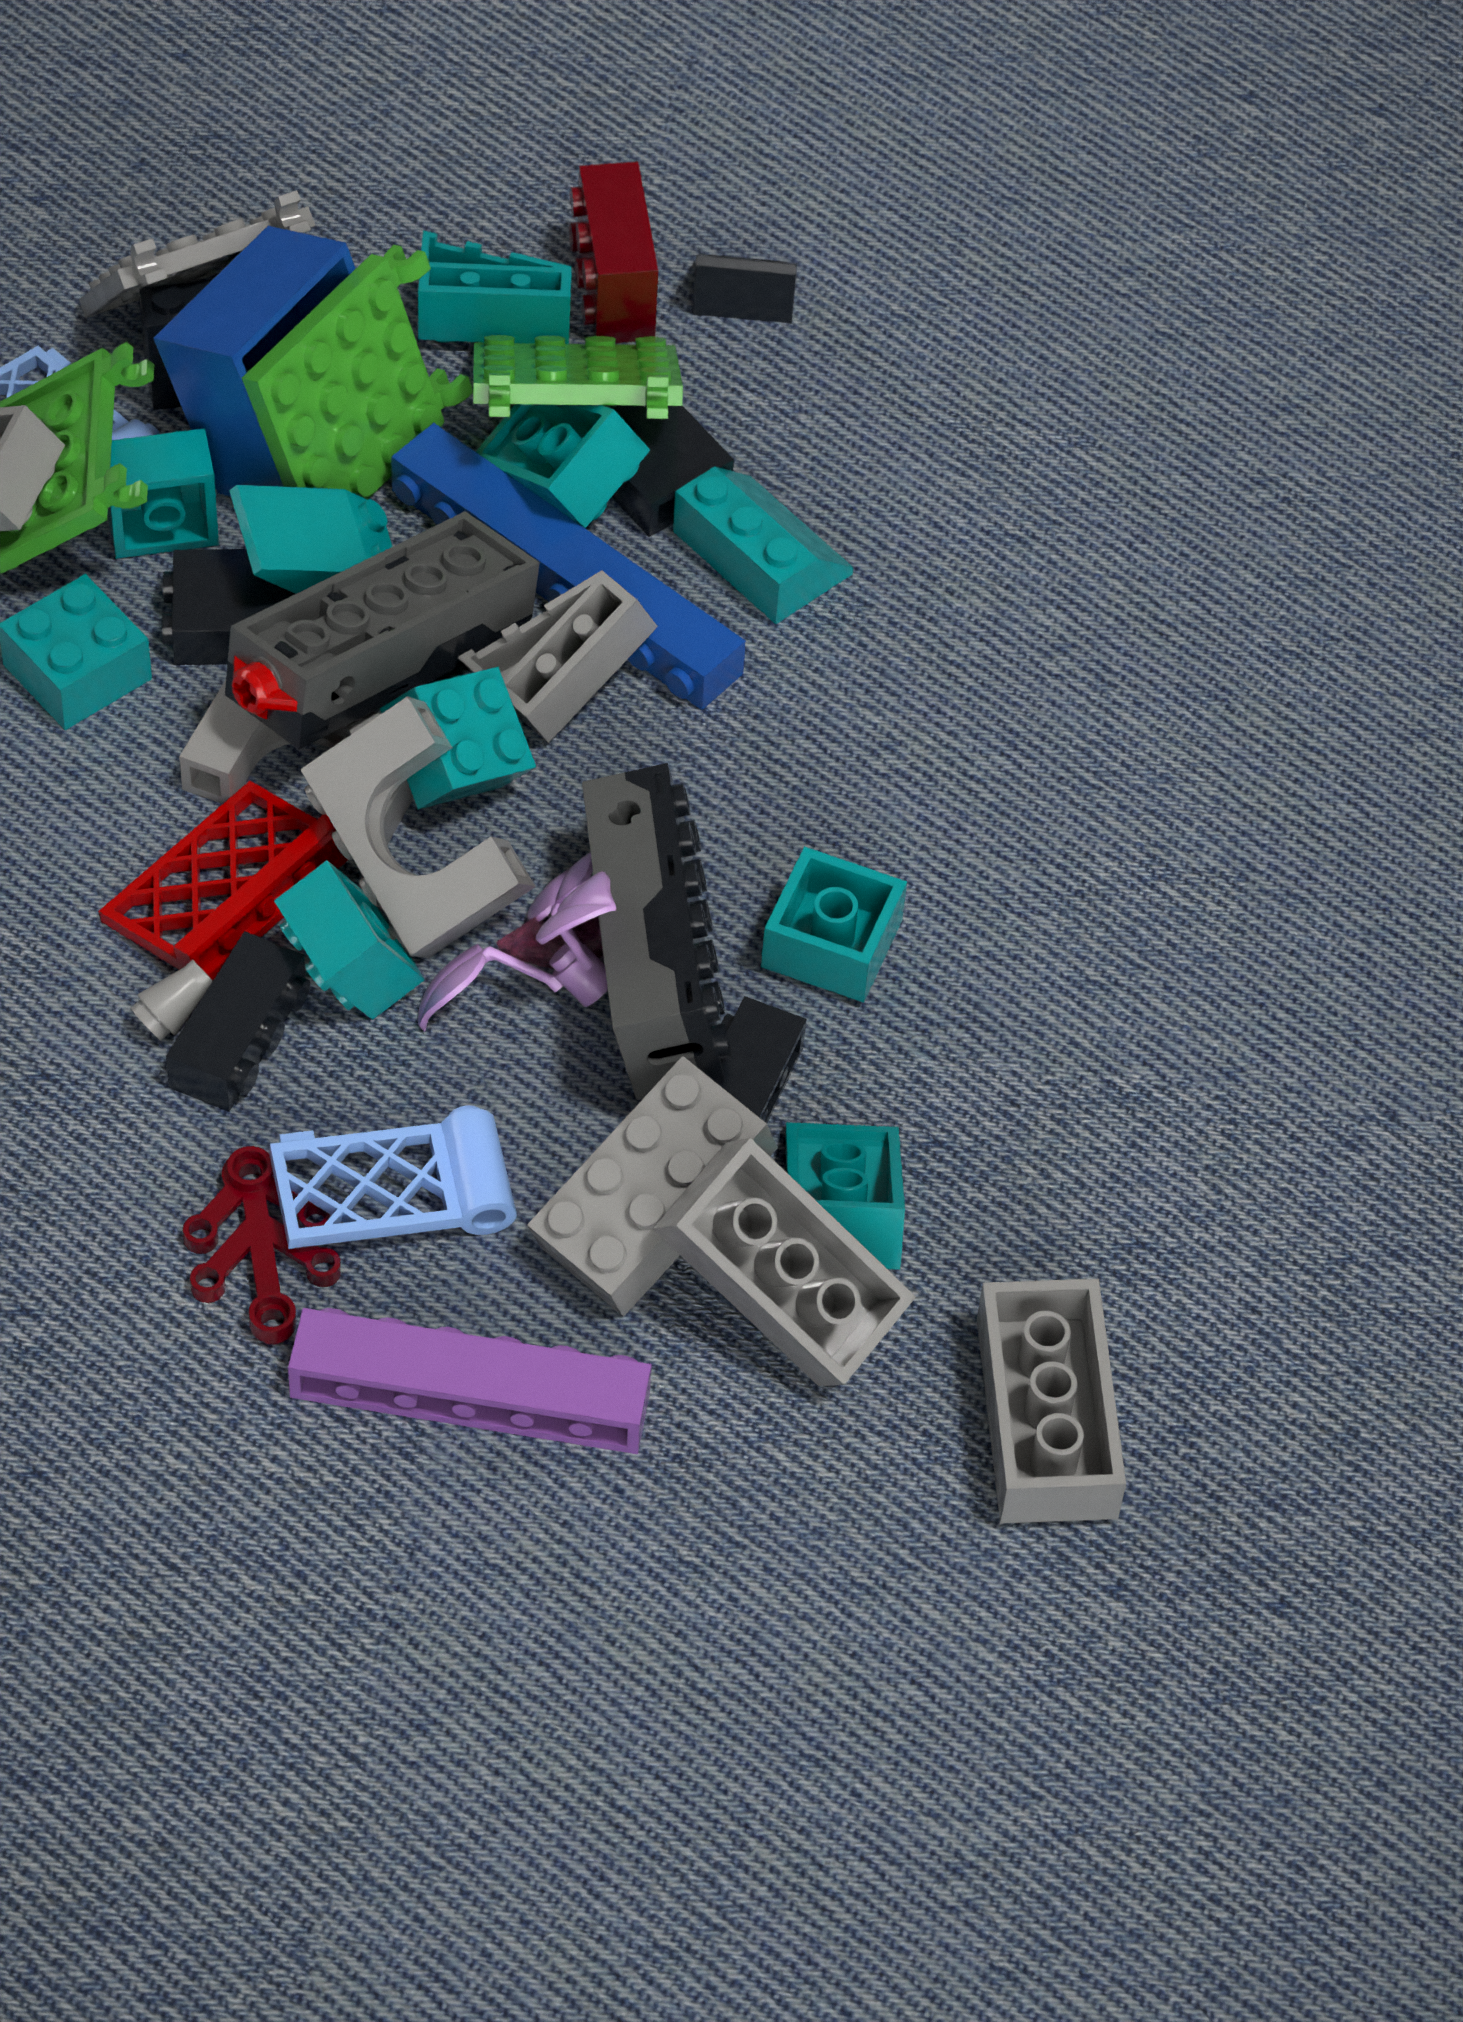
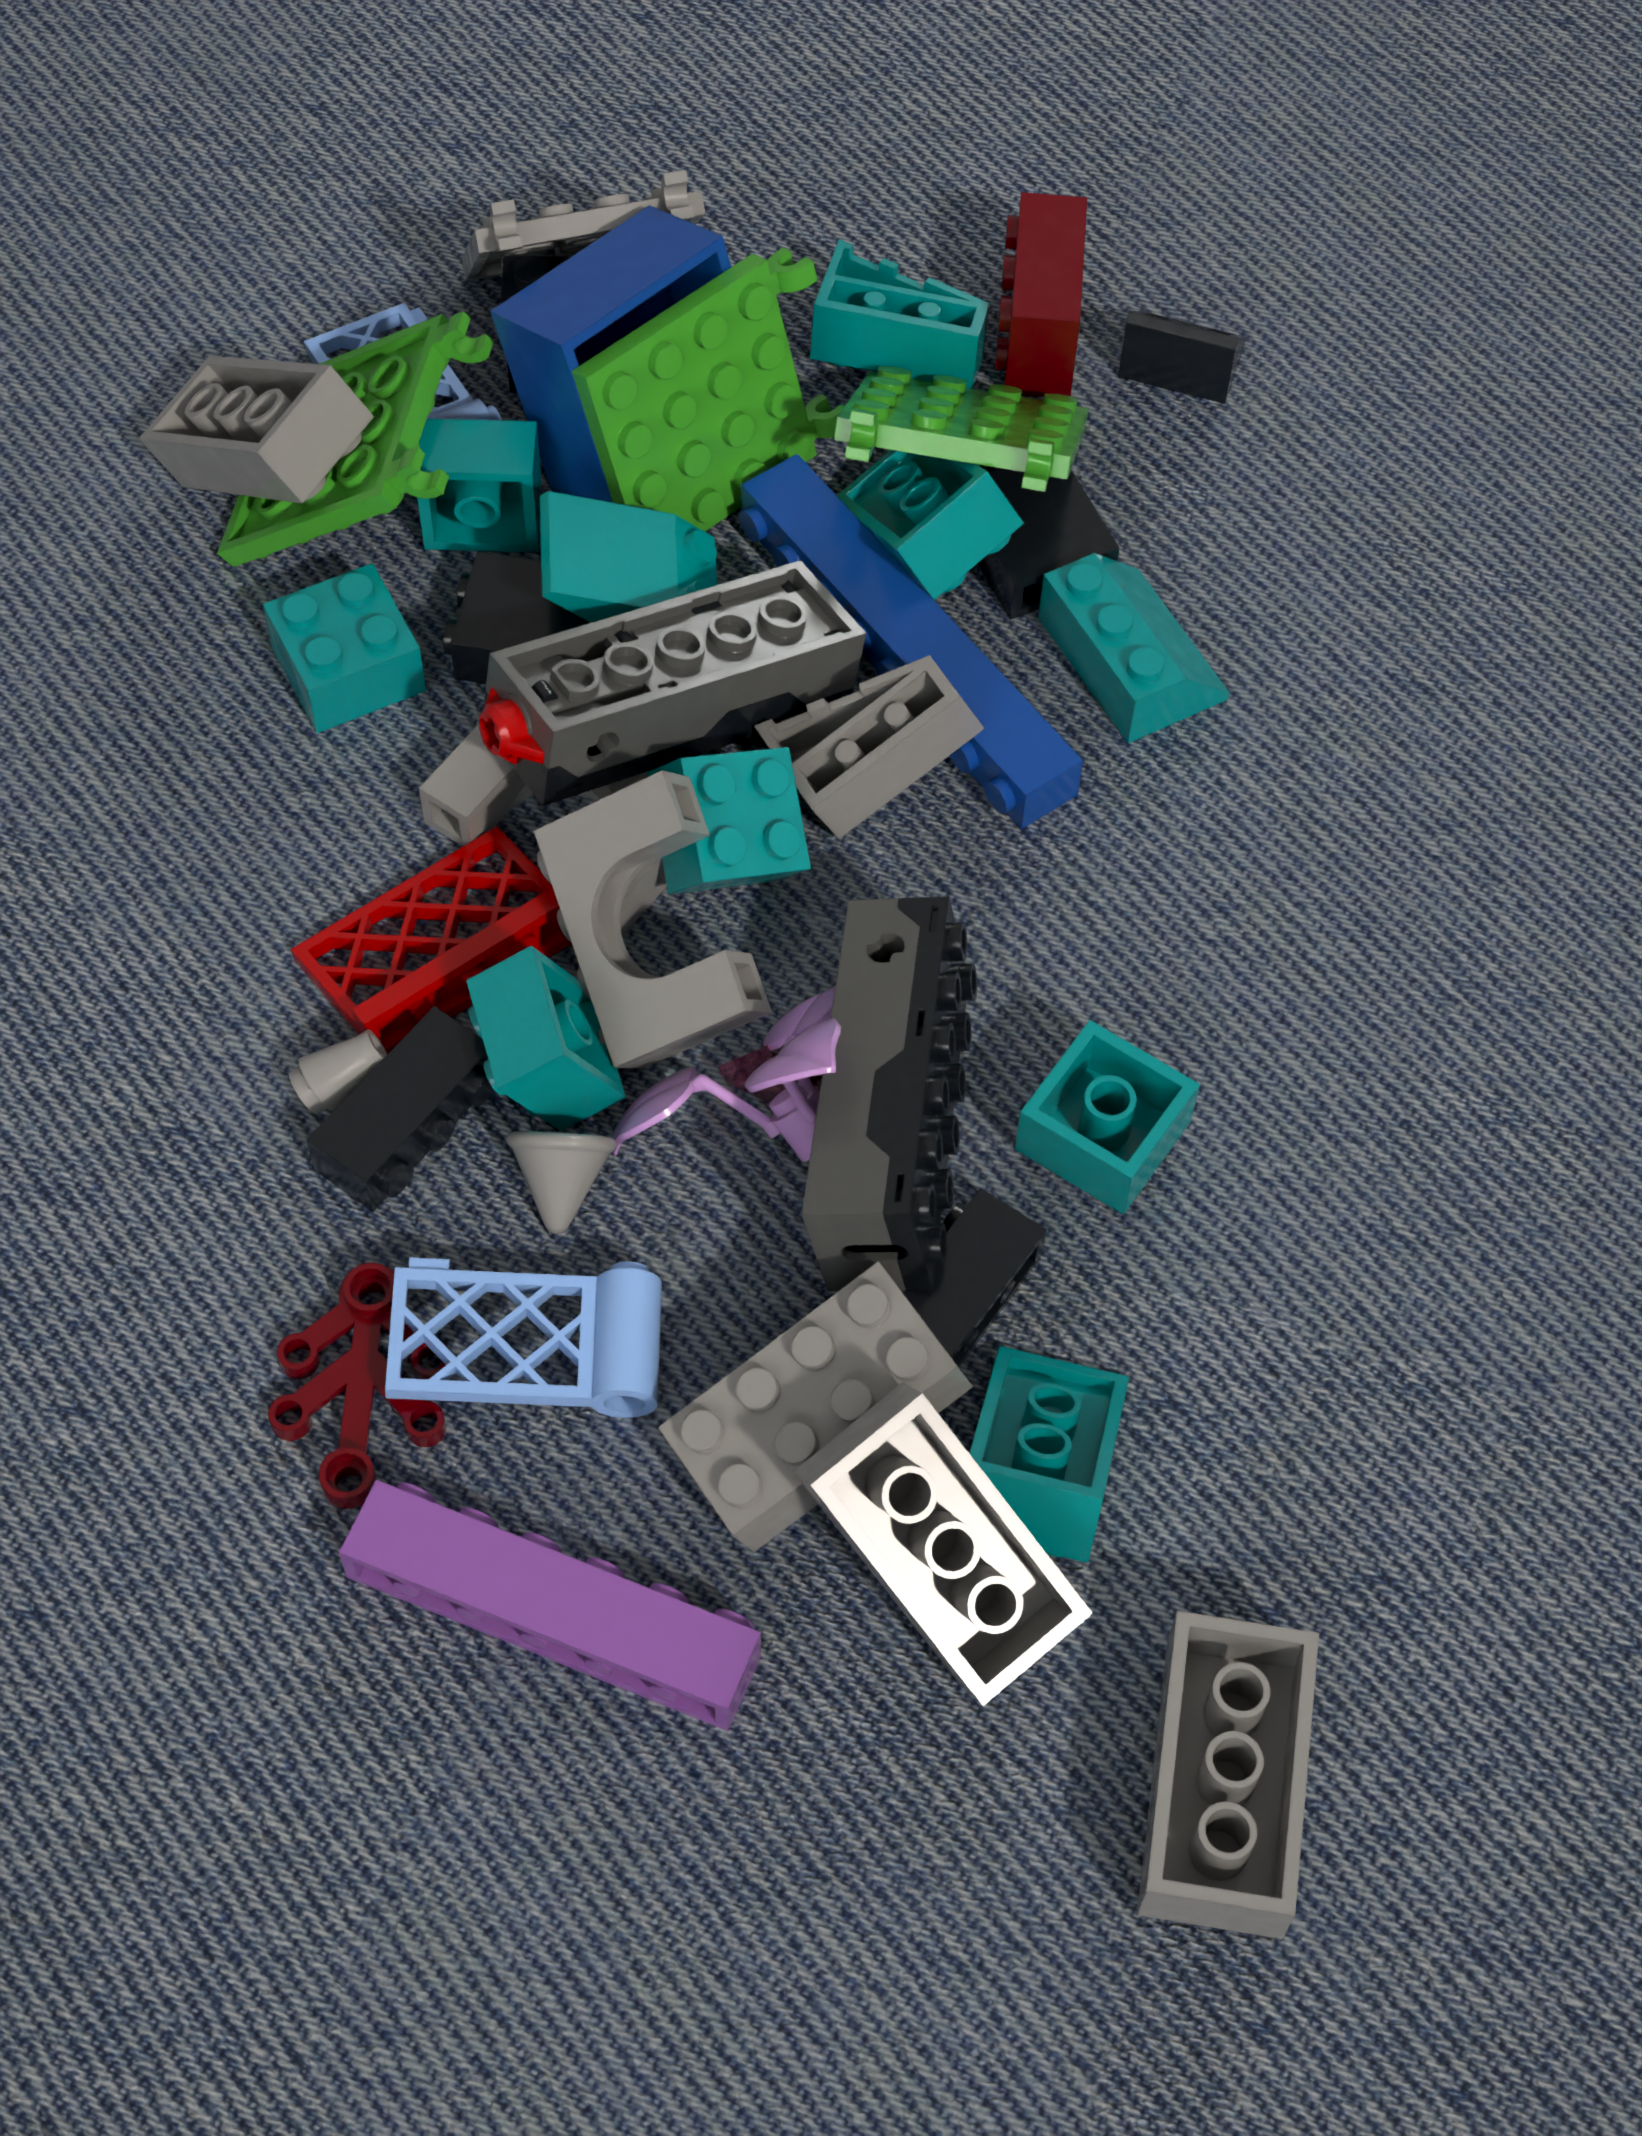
camera: 15 degrees right, 5 degrees up
(384, 1045) = (559, 1170): none -> light grey hat

